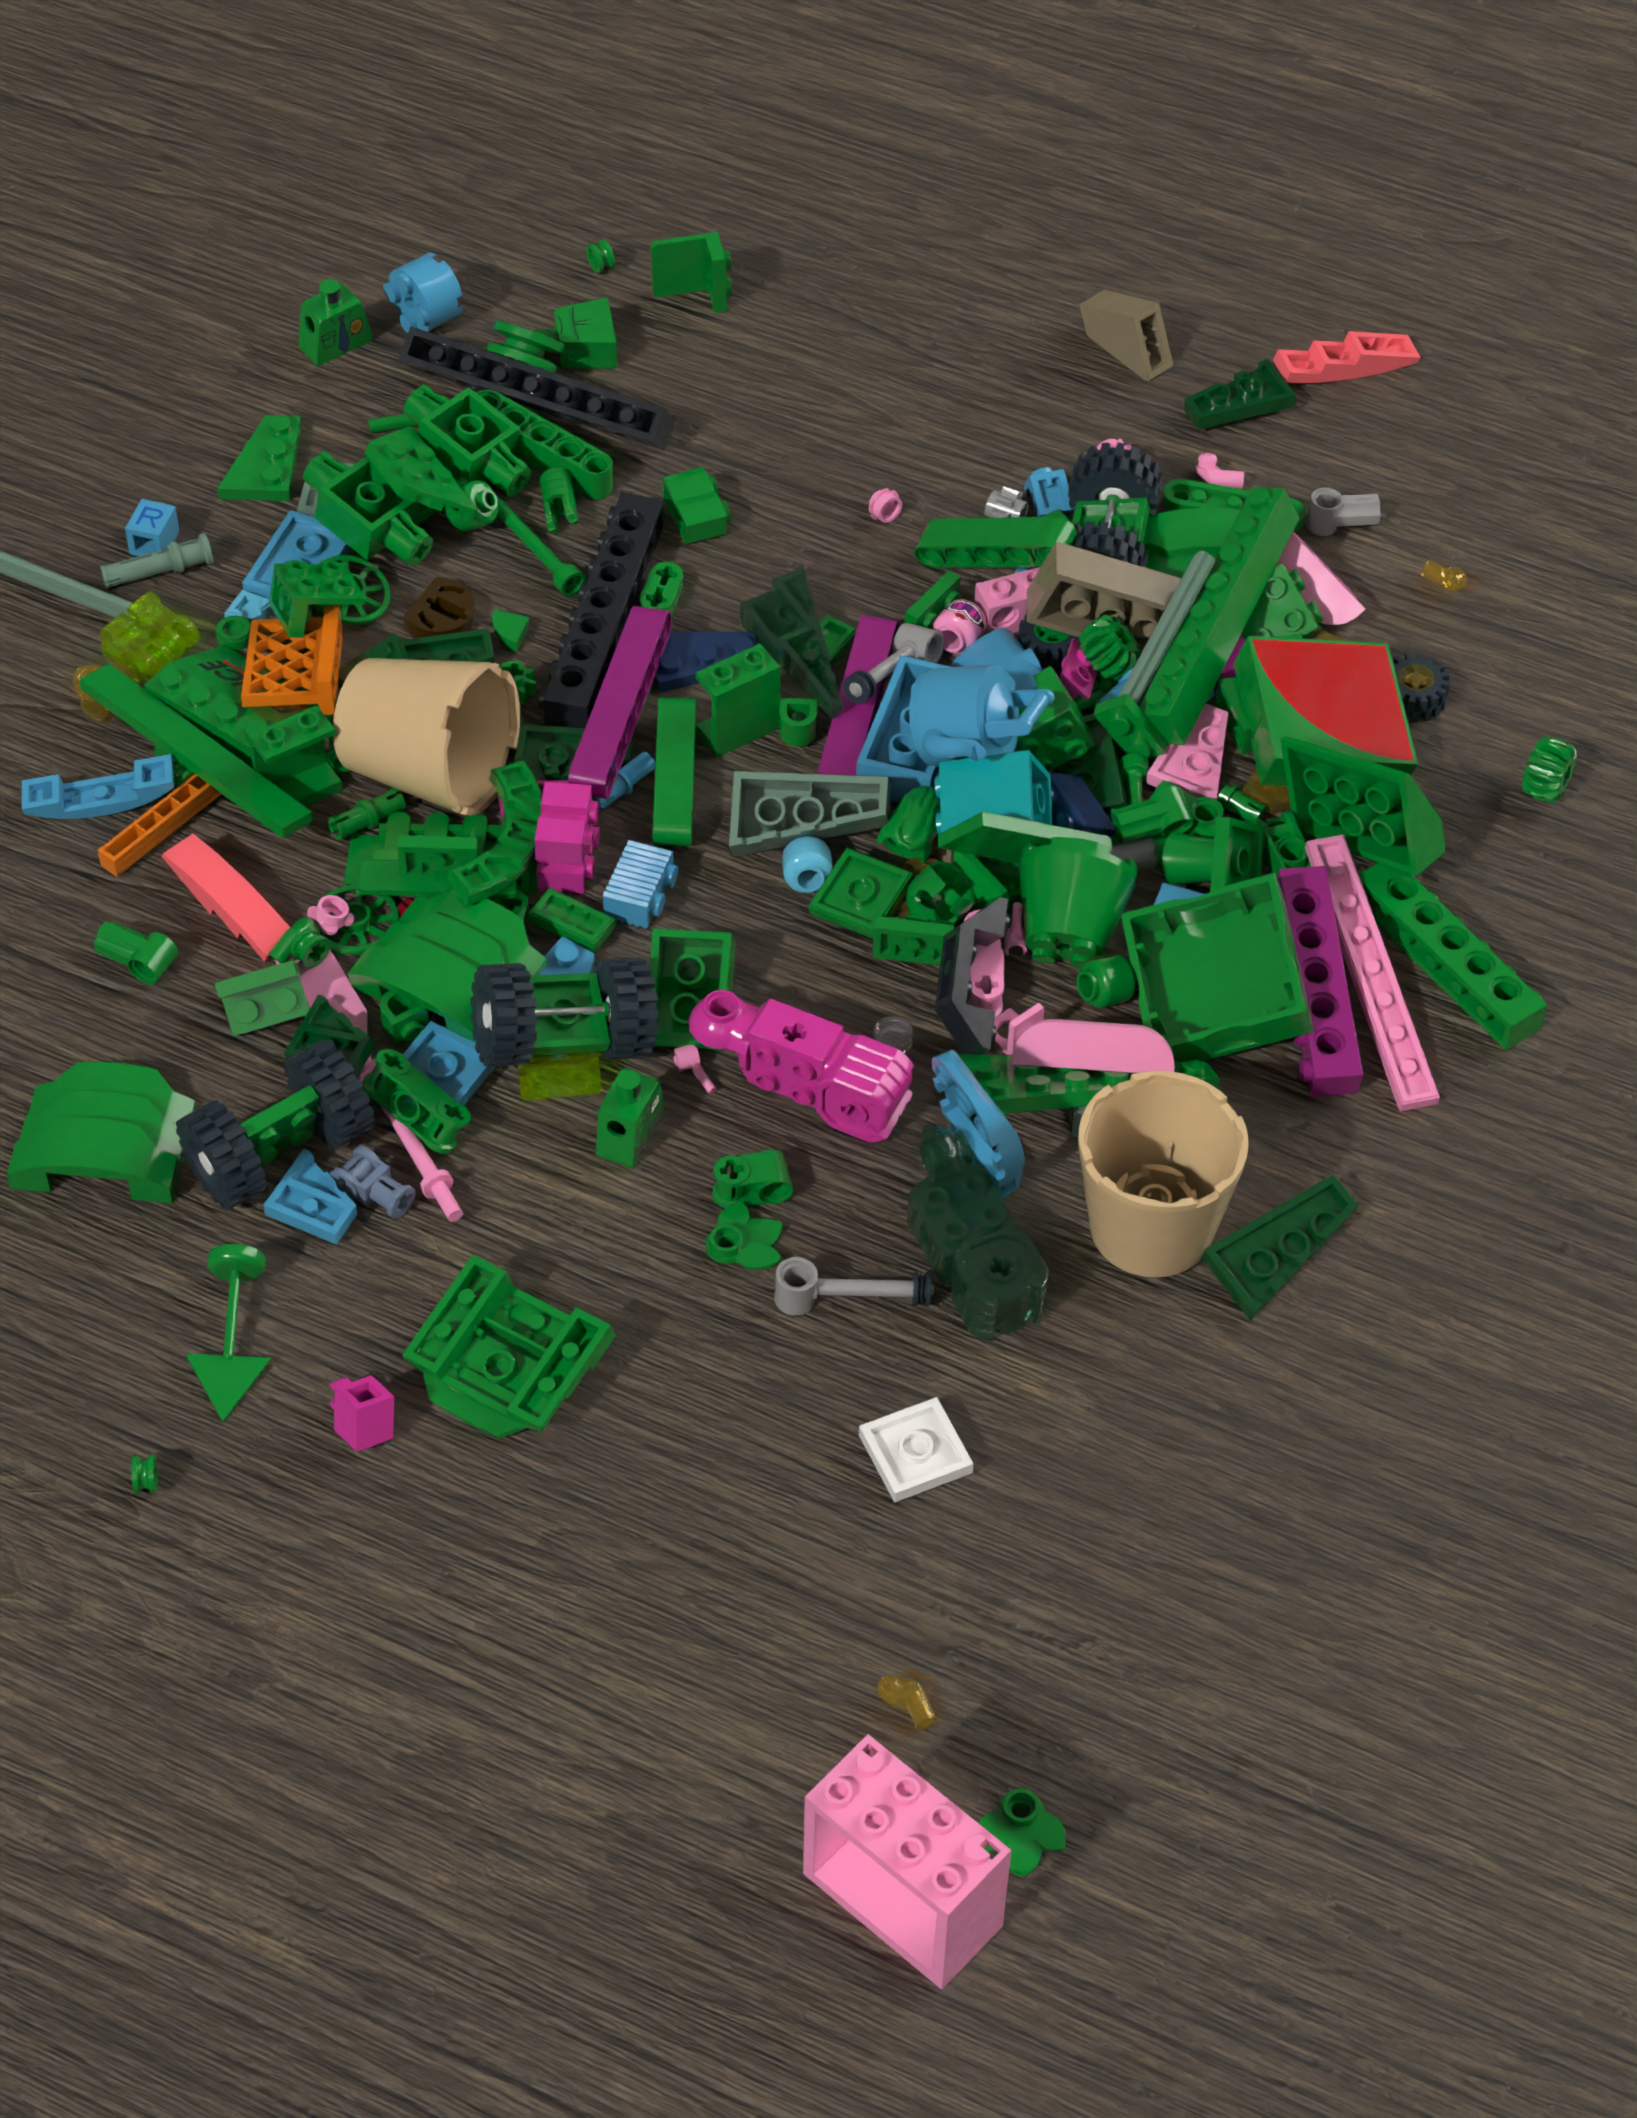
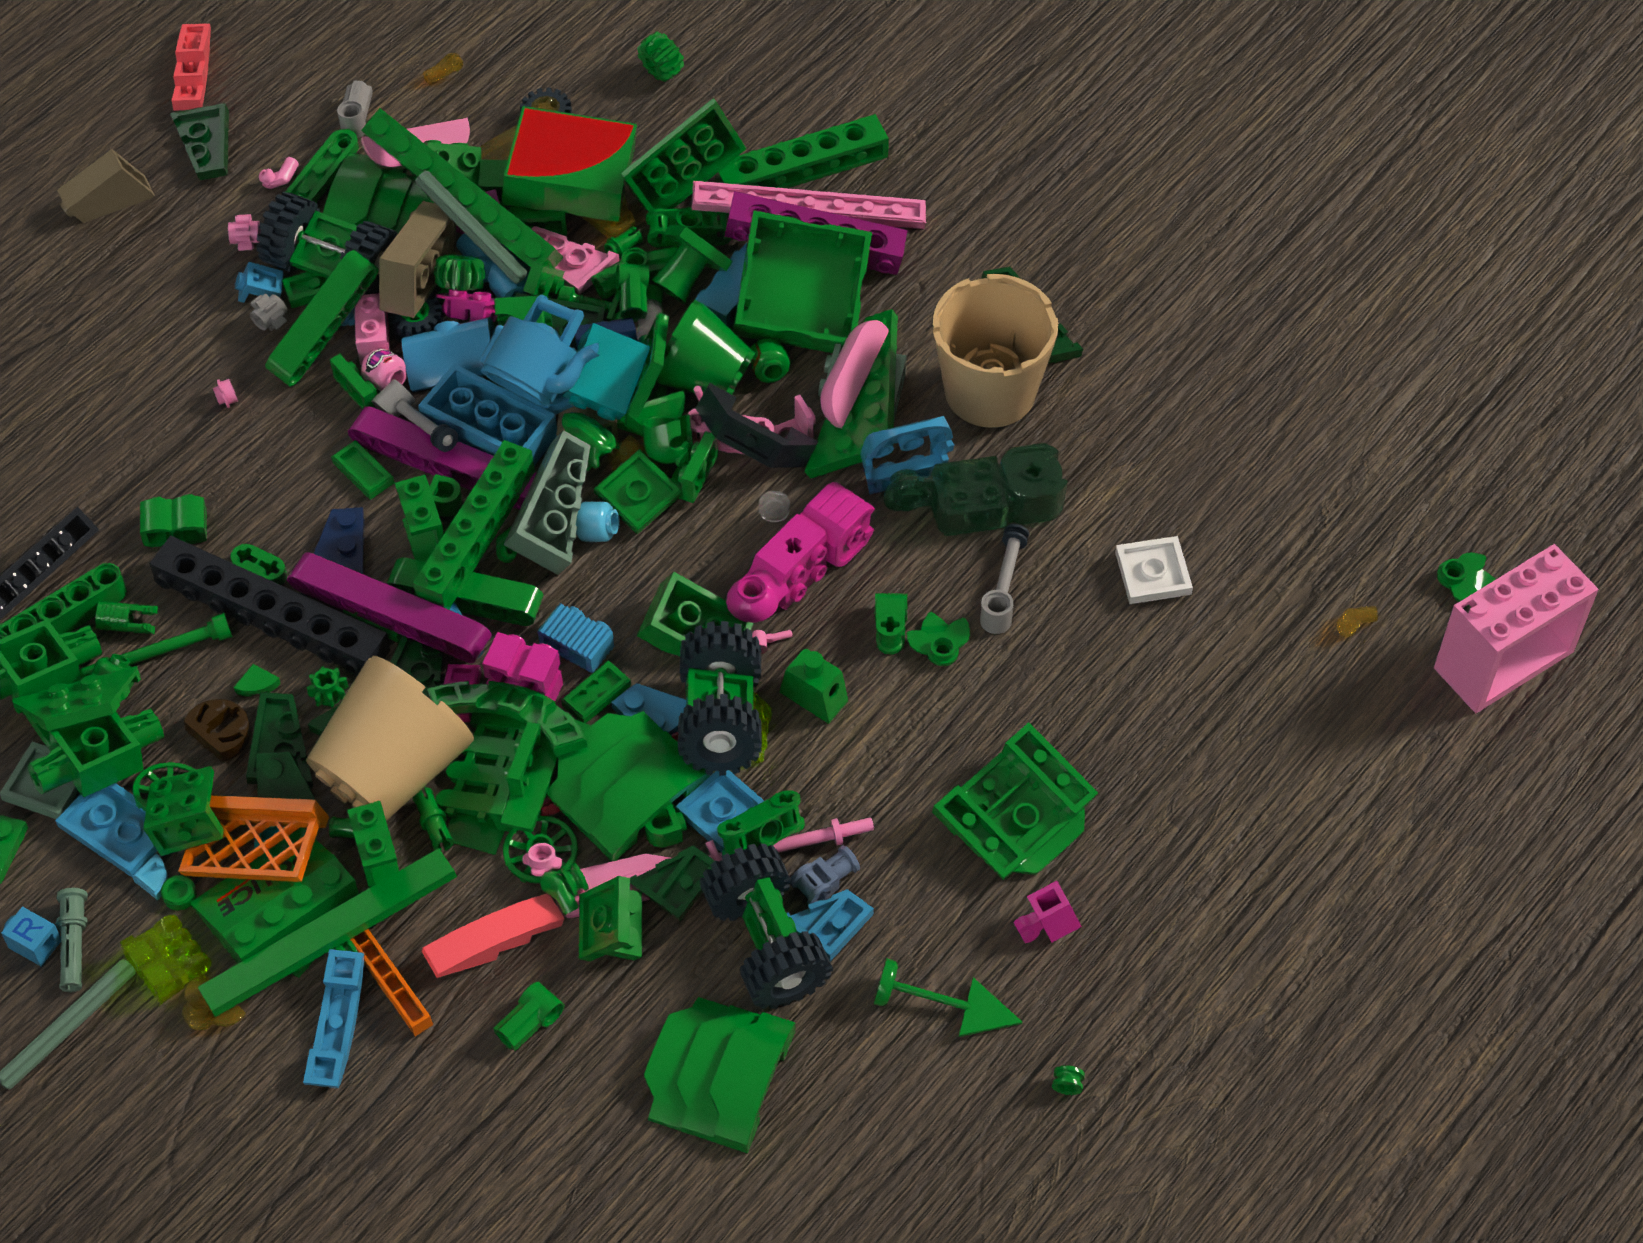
camera: 75 degrees left, 5 degrees up
(738, 739) = (475, 525): none -> green brick
(793, 636) = (355, 479): clear green wedge -> none

